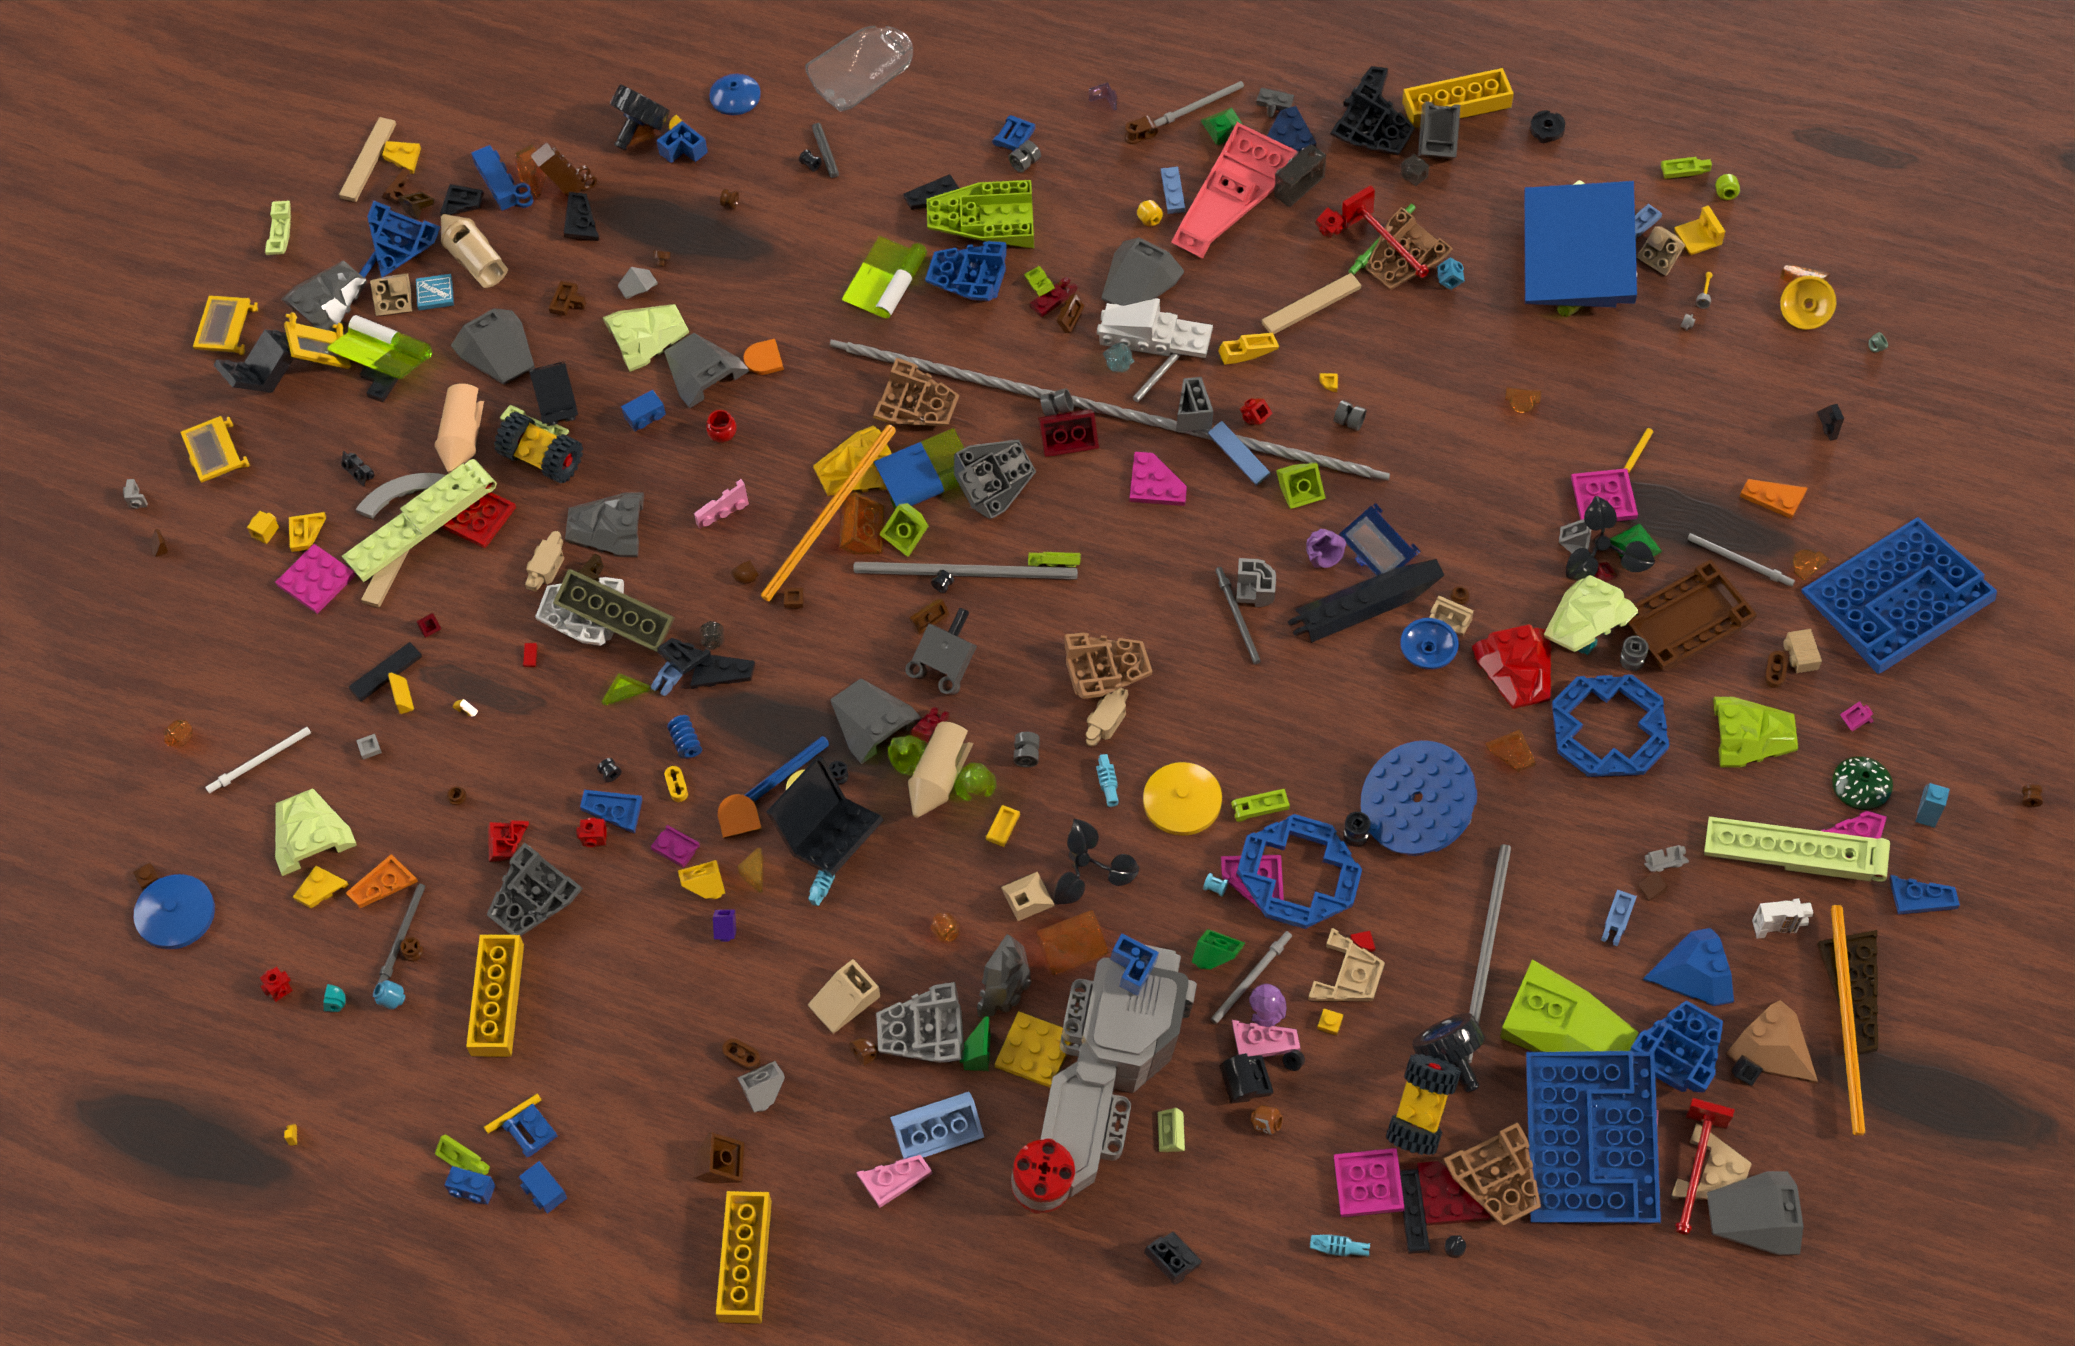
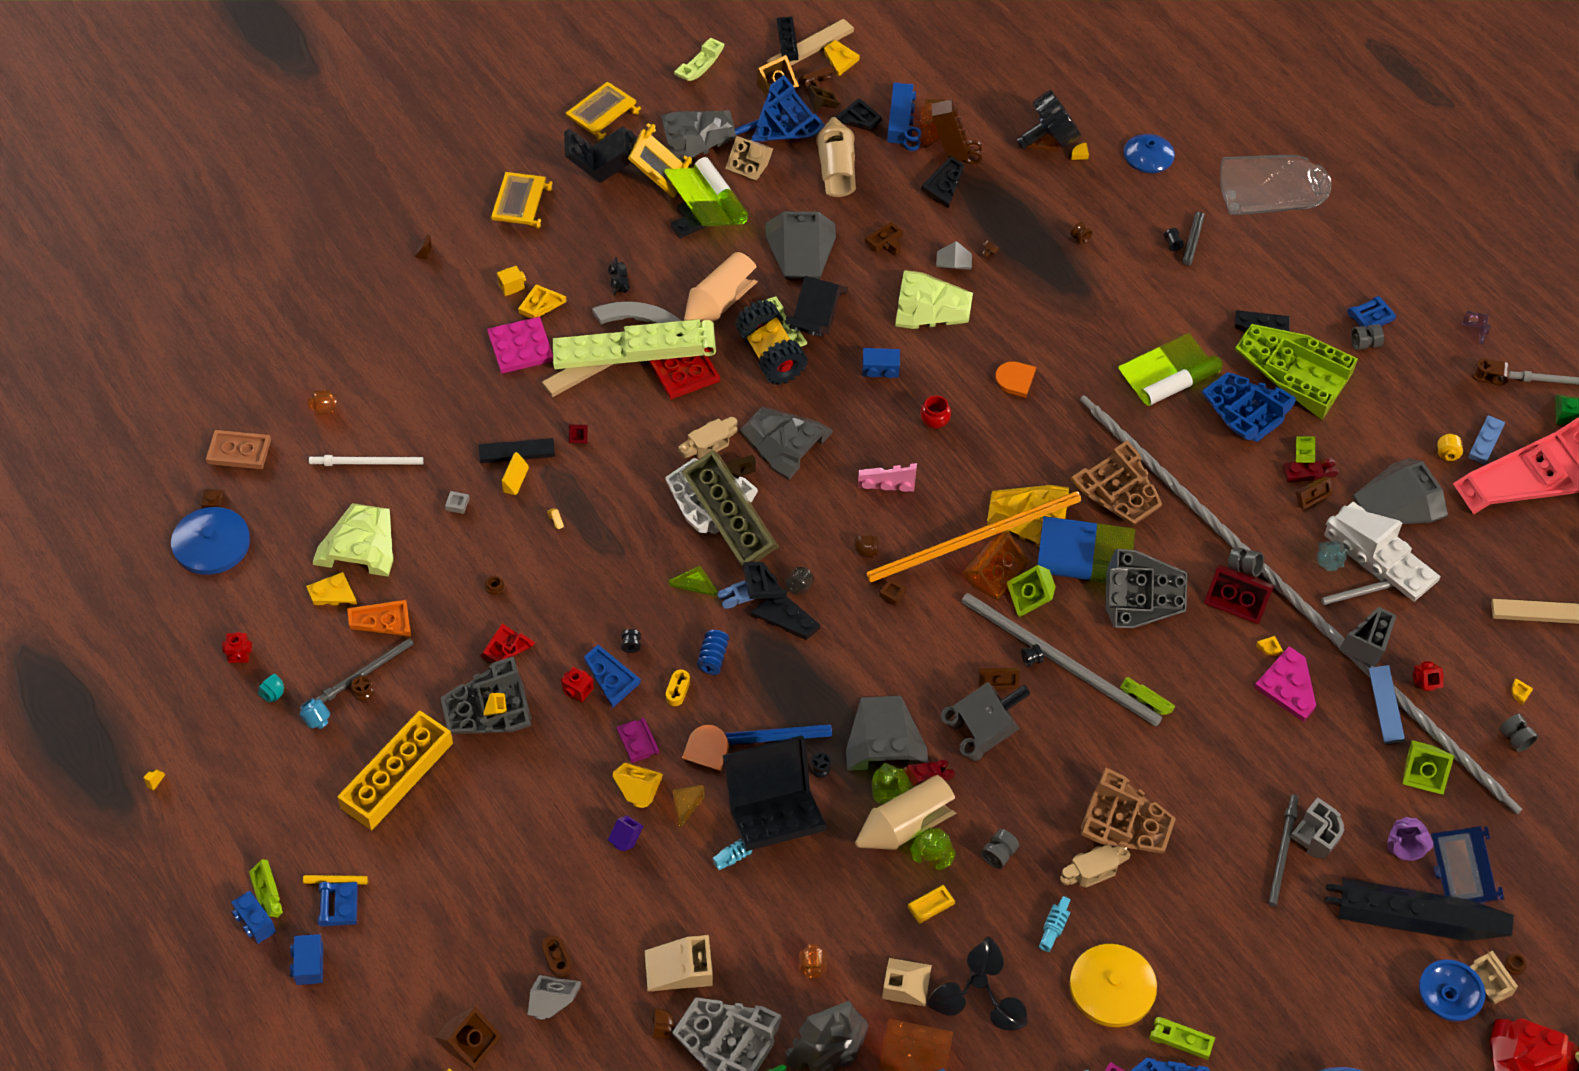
camera: 30 degrees right, 5 degrees down
(132, 495) = (433, 199): light grey bracket -> none
(135, 819) = (238, 449): none -> nougat plate
(343, 164) = (787, 38): none -> black tile
(358, 204) = (773, 71): none -> pearl gold slope
(434, 292) = (785, 175): dark azure tile -> none
(530, 654) = (641, 507): red piece -> none
(541, 890) = (495, 705): none -> yellow slope
(682, 140) = (1073, 164): blue brick -> none
(699, 364) = (956, 351): dark grey wedge -> none
(1120, 461) = (1270, 646): none -> yellow tile
(1247, 347) = (1461, 616): yellow slope -> none

